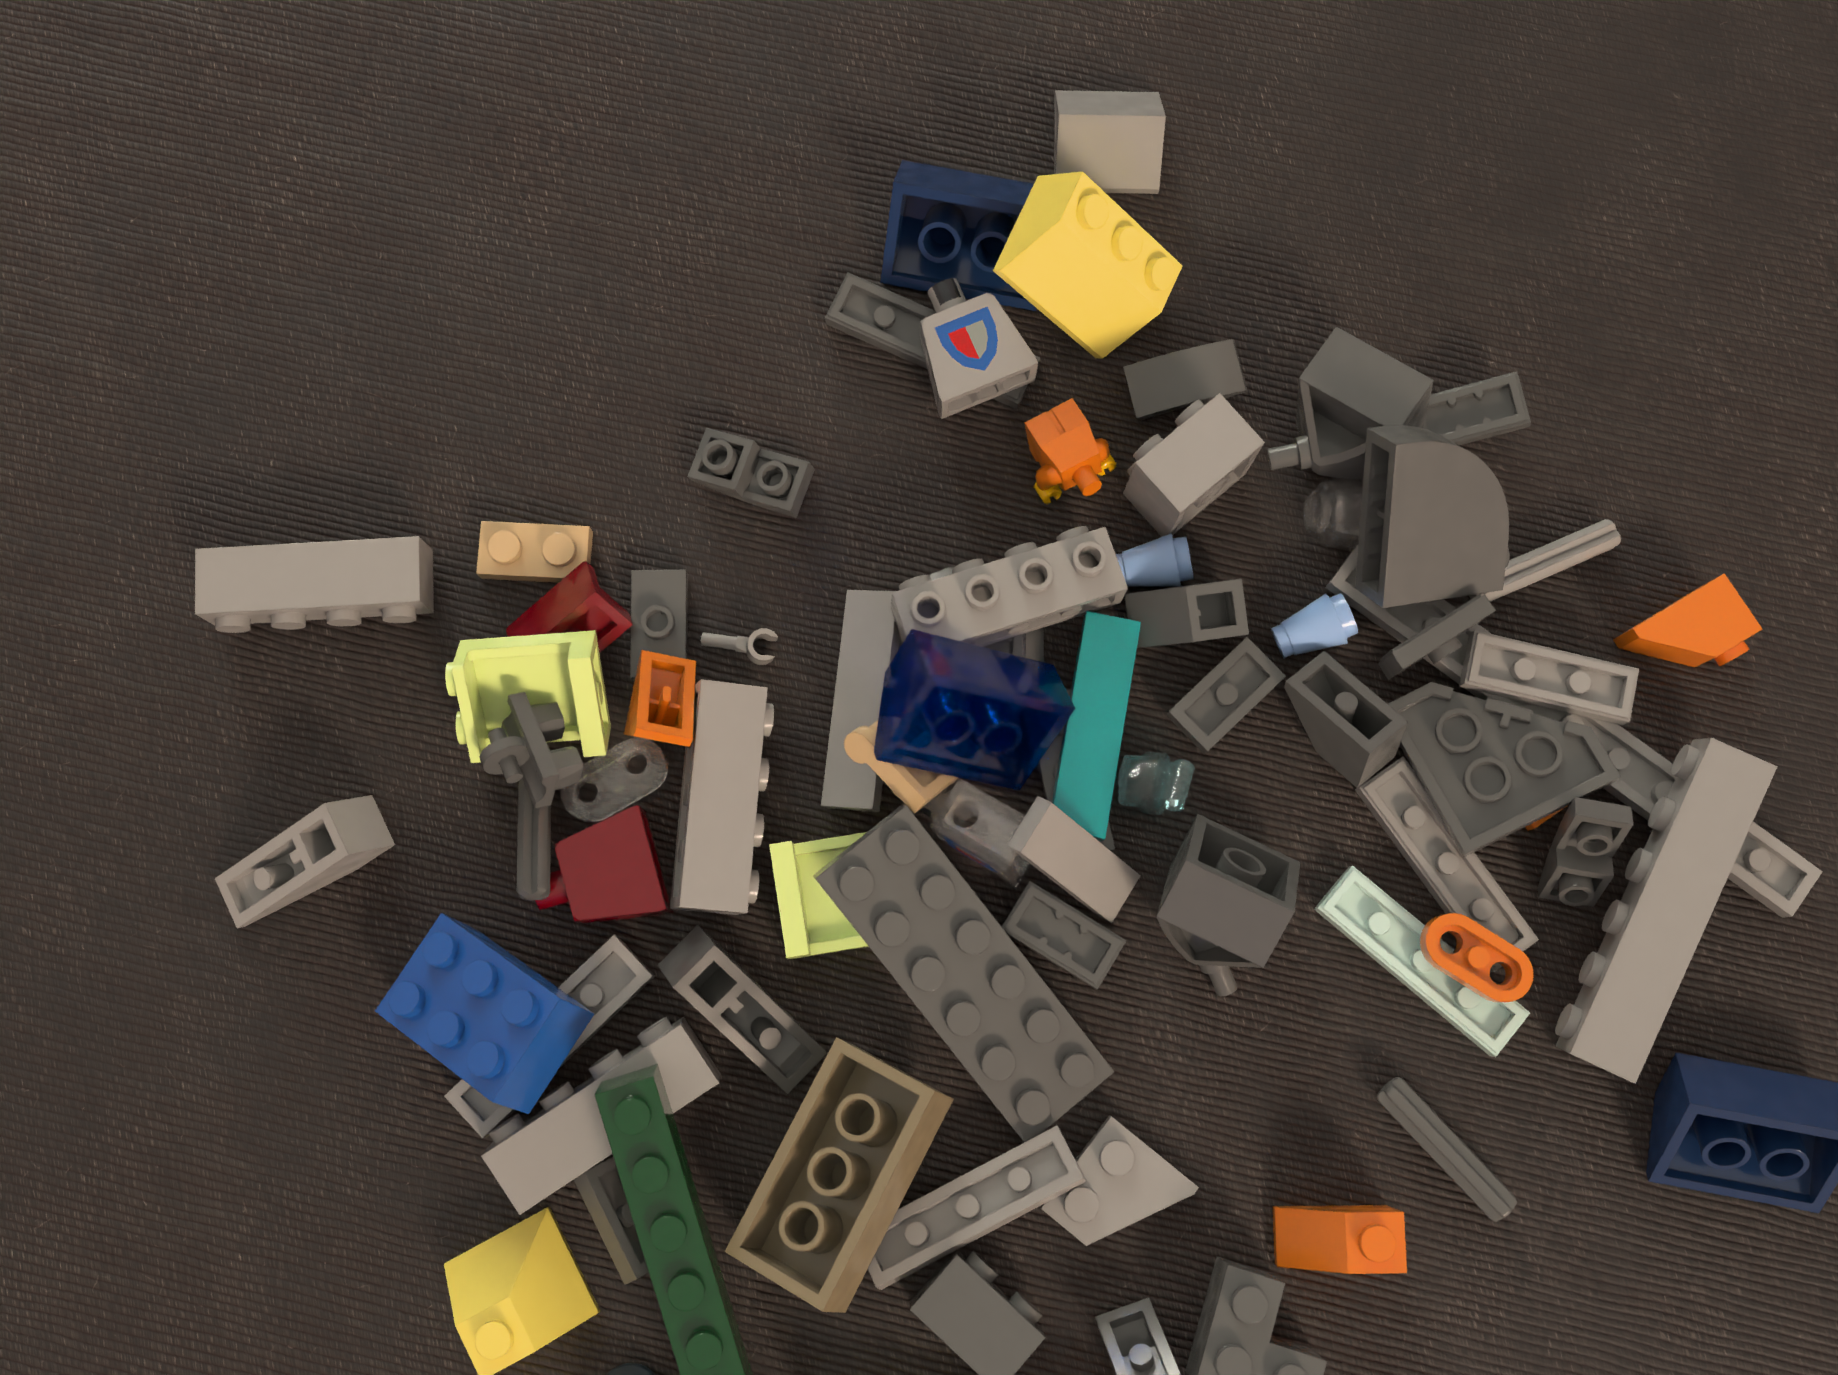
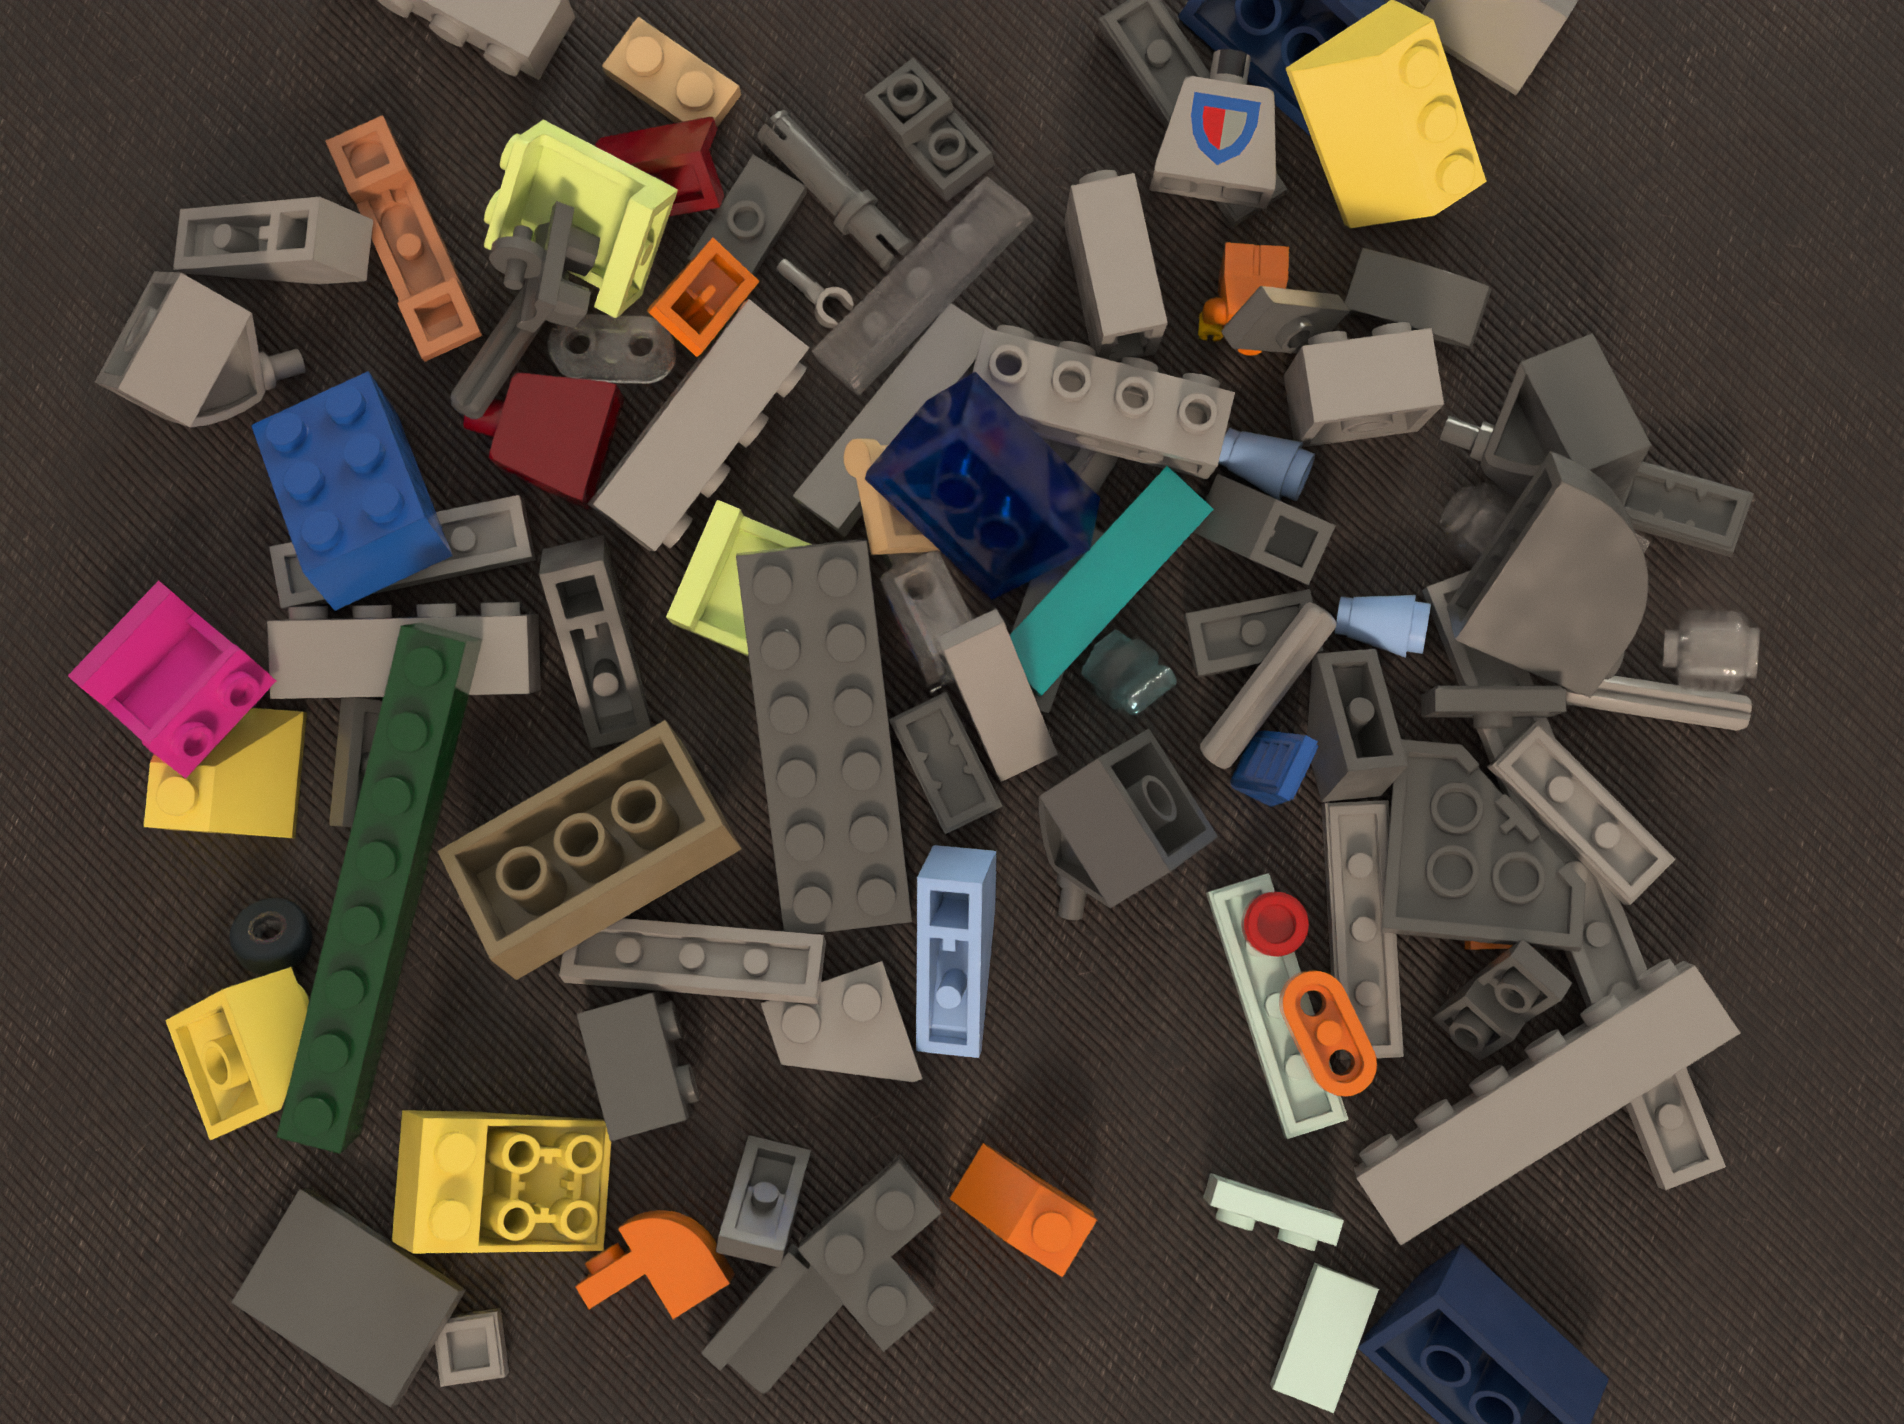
camera: 30 degrees right, 5 degrees up
(294, 986) = (192, 355): none -> light grey piece
(406, 794) = (405, 238): none -> nougat slope
(433, 1249) = (172, 679): none -> dark pink panel
(710, 559) = (854, 209): none -> dark grey pin
(818, 590) = (922, 285): none -> clear tile
(955, 489) = (1114, 266): none -> light grey brick
(1106, 452) = (1283, 319): none -> dark grey plate
(1160, 1072) = (954, 949): none -> light blue slope
(1263, 727) = (1268, 685): none -> light grey axle
(1308, 783) = (1274, 766): none -> blue slope
(1383, 900) = (1274, 924): none -> red tile
(1446, 1149) = (1182, 1194): dark grey axle -> none
(1546, 1114) = (1298, 1222): none -> light aqua plate
(1561, 501) = (1712, 650): none -> clear head
(1620, 1190) = (1324, 1337): none -> light aqua tile
(1696, 627) = (1762, 856): orange slope -> none

